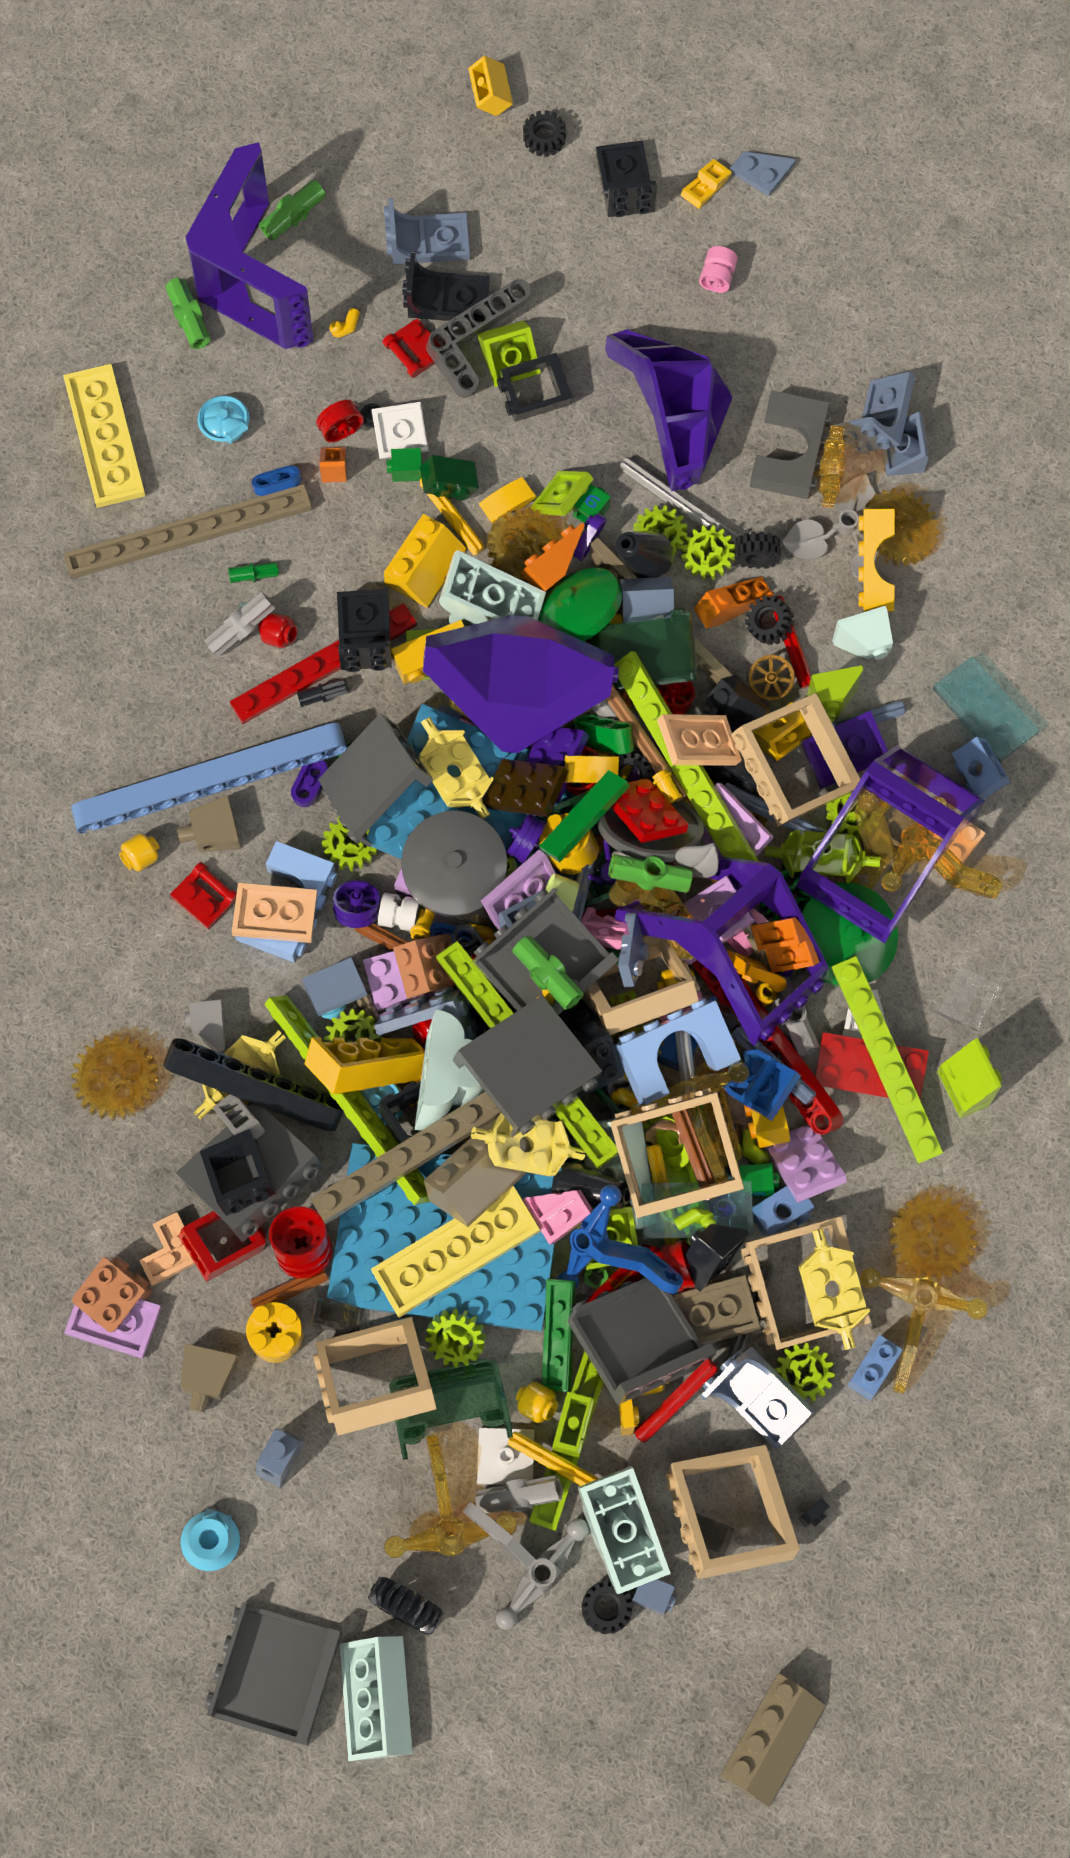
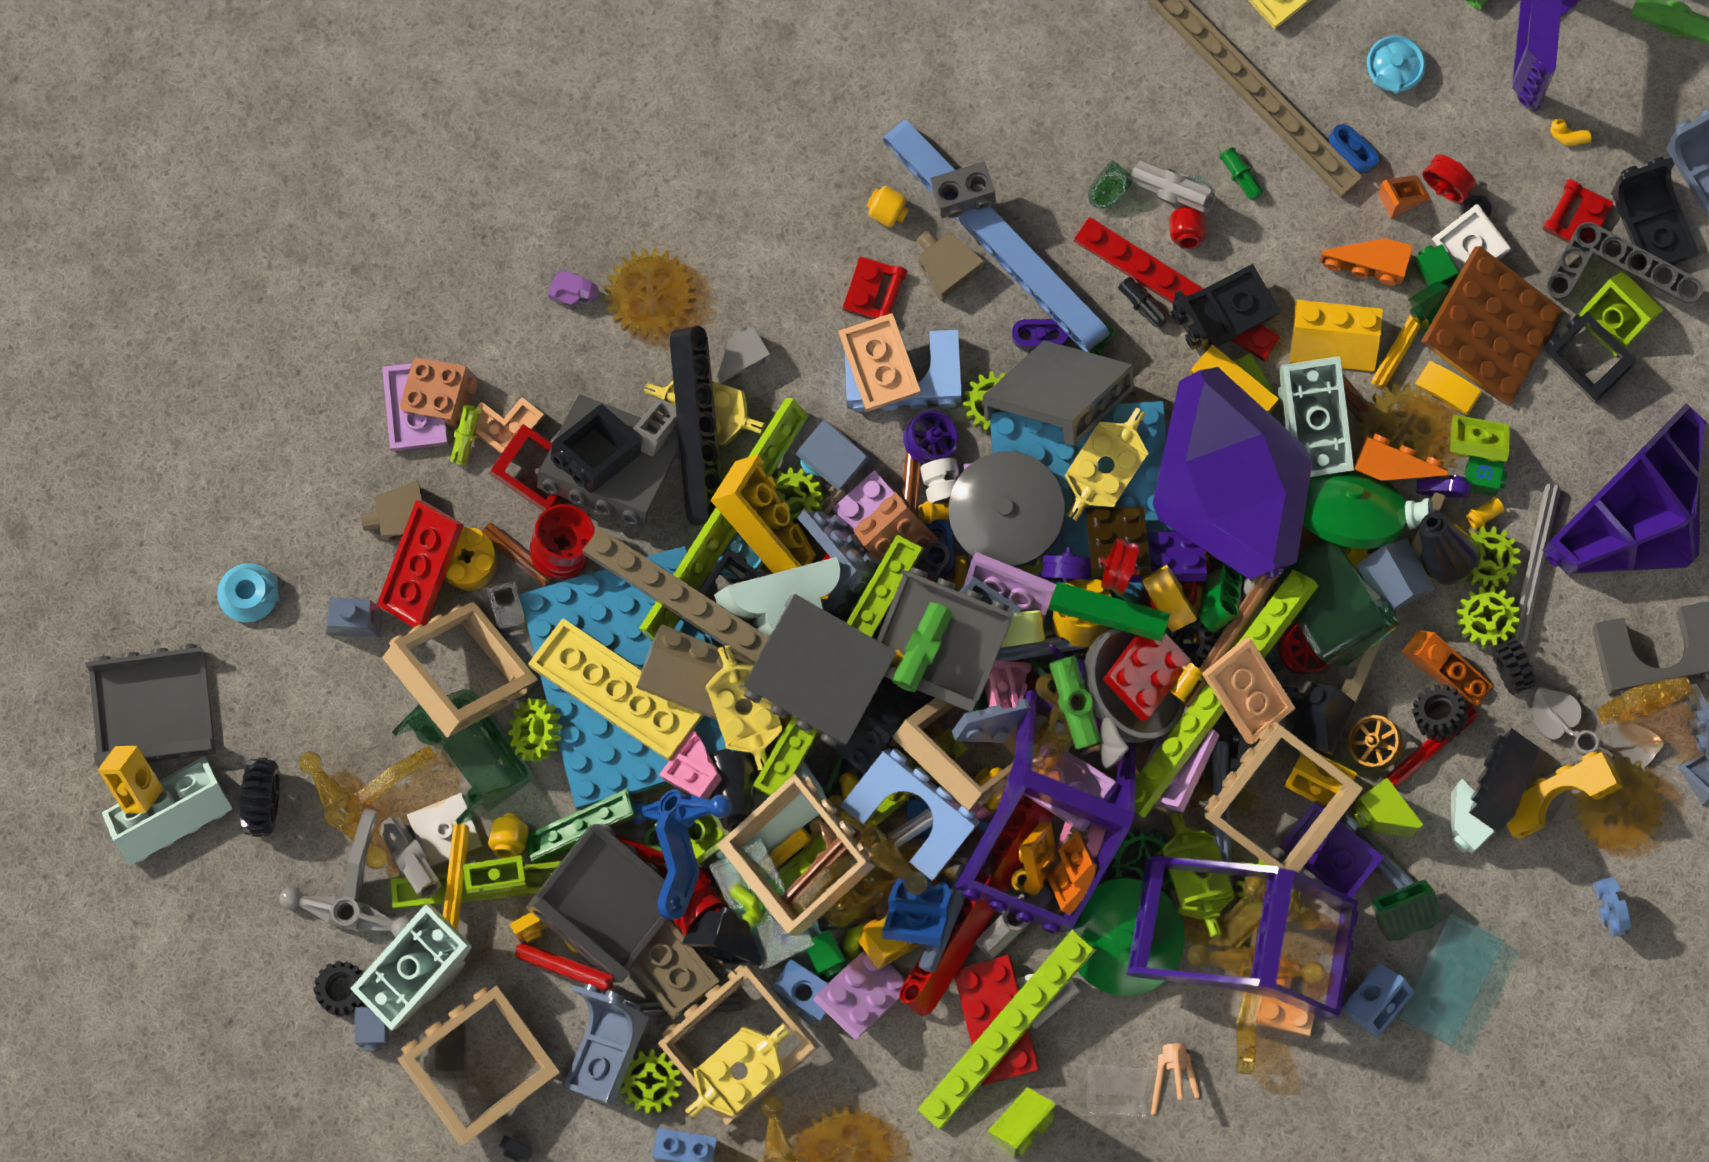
camera: 70 degrees right, 5 degrees up
(78, 1140) = (572, 289): none -> medium lavender rock
(156, 781) = (960, 183): none -> dark grey brick
(163, 1286) = (465, 435): none -> lime pin
(212, 674) = (1109, 185): none -> rock
(263, 1371) = (420, 564): none -> red plate
(336, 1716) = (130, 779): none -> yellow brick
(378, 501) = (1375, 258): none -> orange slope
(476, 442) = (1492, 325): none -> dark orange plate
(557, 783) = (1119, 566): none -> red wheel
(605, 558) = (1417, 511): none -> light aqua wheel
(622, 519) = (1479, 517): none -> yellow pin
(851, 592) = (1503, 779): none -> black brick
(918, 714) = (1407, 910): none -> dark green brick
(962, 941) = (1176, 1059): none -> light nougat plant
(985, 564) = (1614, 909): none -> medium blue plate

